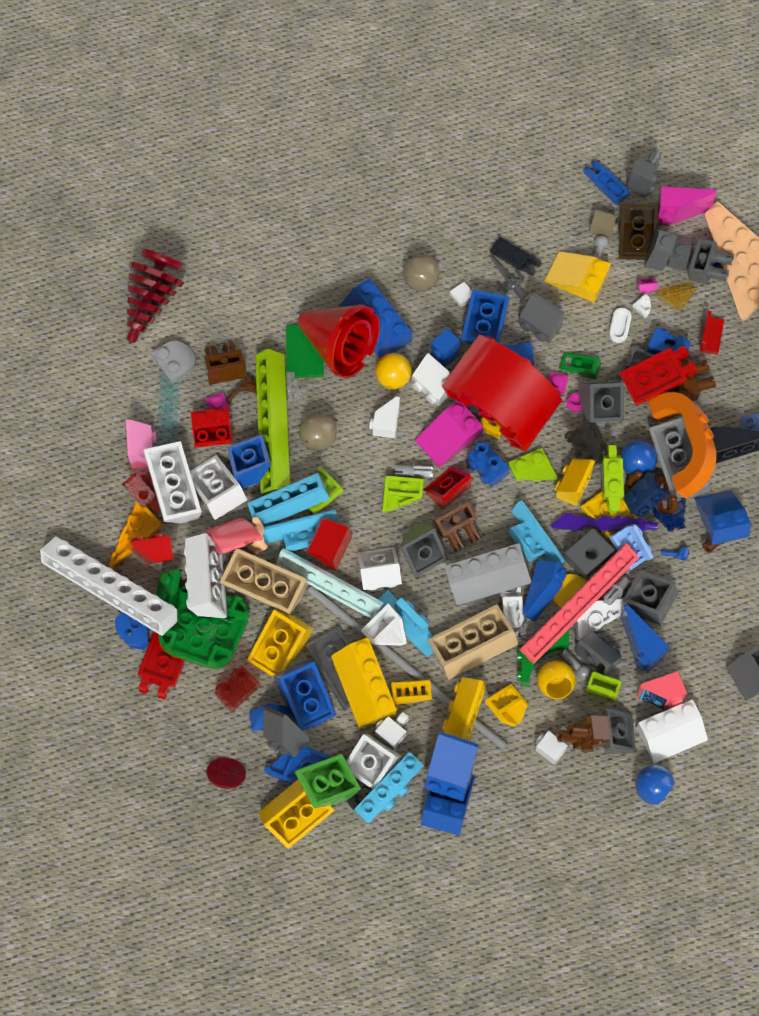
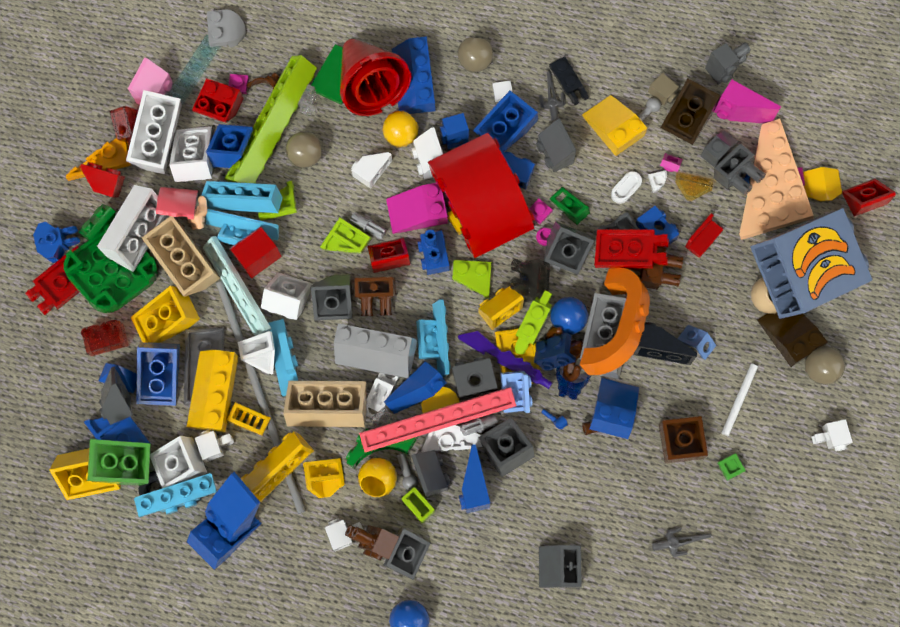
camera: 30 degrees right, 5 degrees up
(109, 585) = (50, 193): white brick -> none
(225, 365) = (260, 53): reddish brown brick -> none
(226, 773) = (52, 406): dark red piece -> none
(607, 183) = (689, 55): blue hinge -> none
(660, 250) = (700, 137): dark grey slope -> none
(663, 691) = (466, 540): coral slope -> none
(672, 731) = (454, 580): white slope -> none

